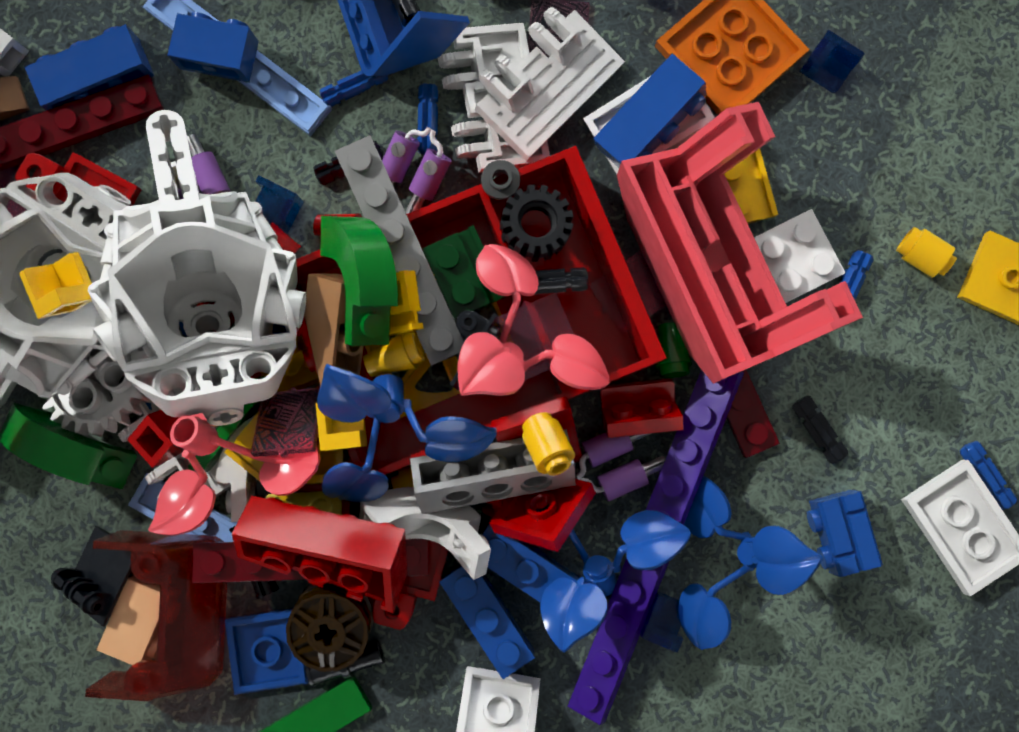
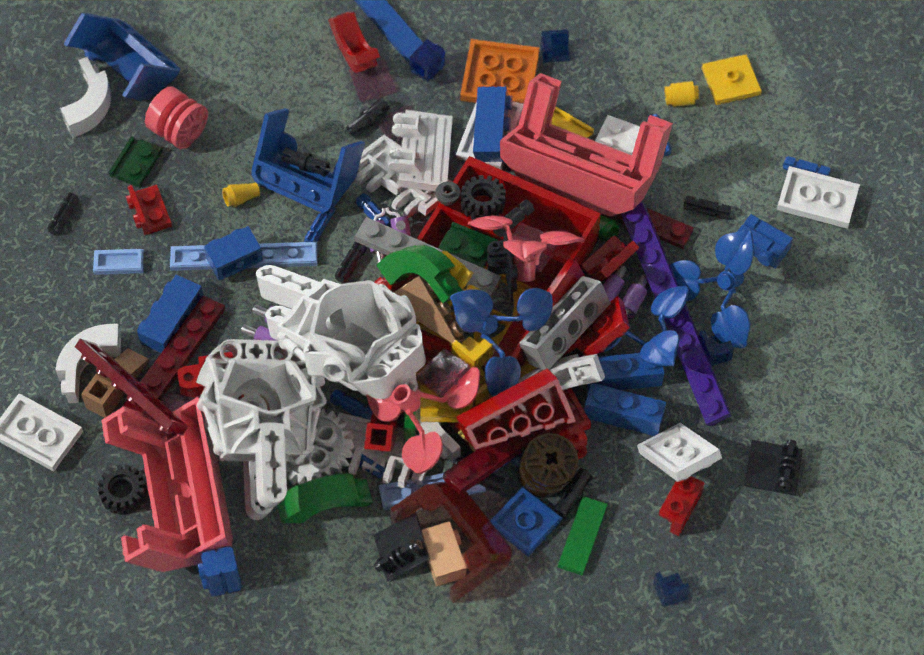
camera: 45 degrees left, 25 degrees down
(57, 286) = (285, 369): yellow panel -> none
(547, 444) = (579, 279): yellow brick -> none

